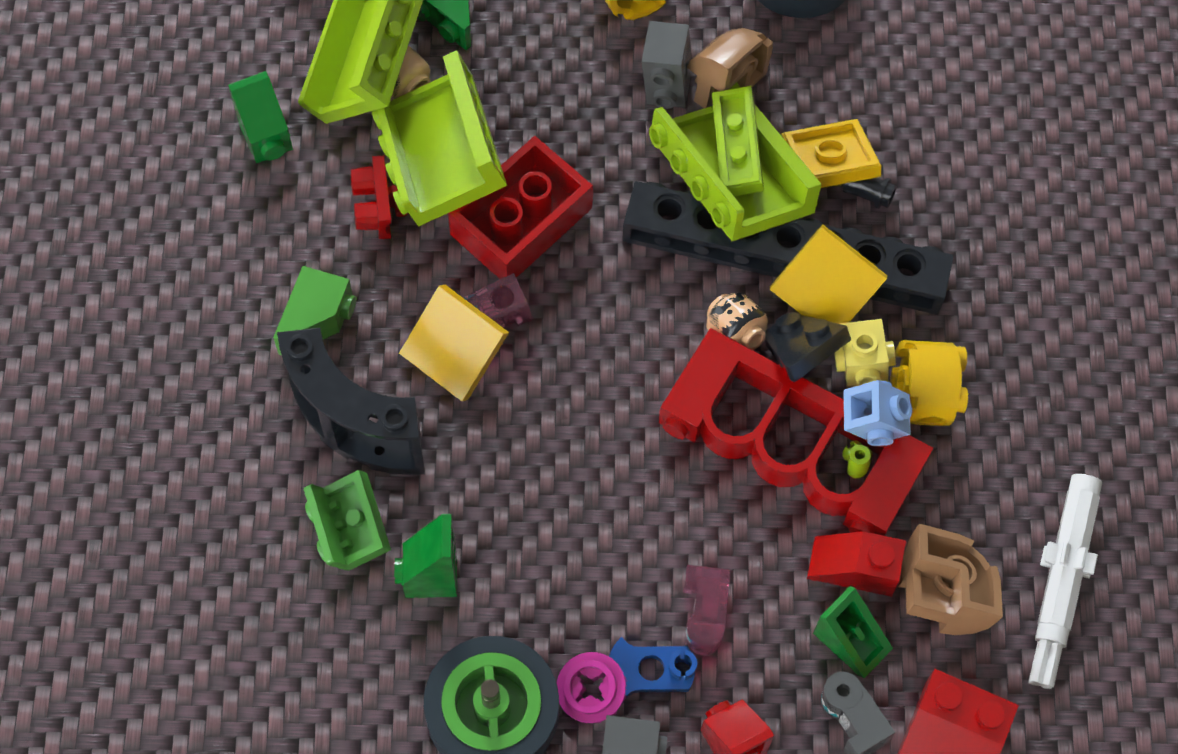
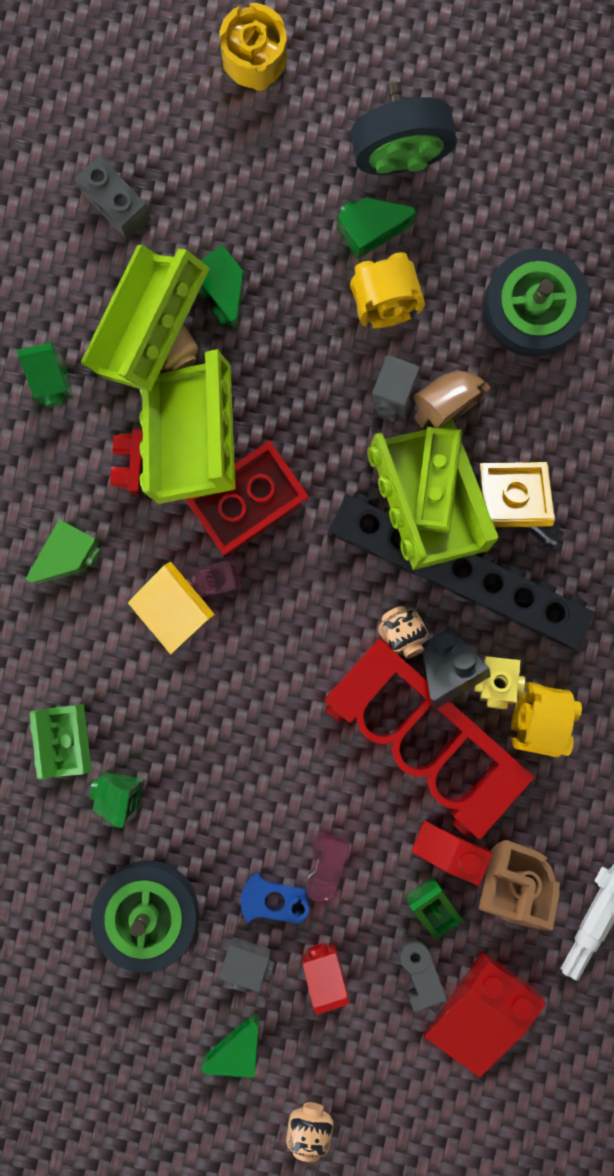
camera: 10 degrees right, 20 degrees up
(344, 409) = (67, 659): black window -> none
(571, 687) = (221, 926): dark pink gear -> none
(828, 279) = (485, 616): yellow tile -> none
(858, 458) = (475, 766): lime arm -> none
(877, 412) = (495, 750): light blue brick -> none

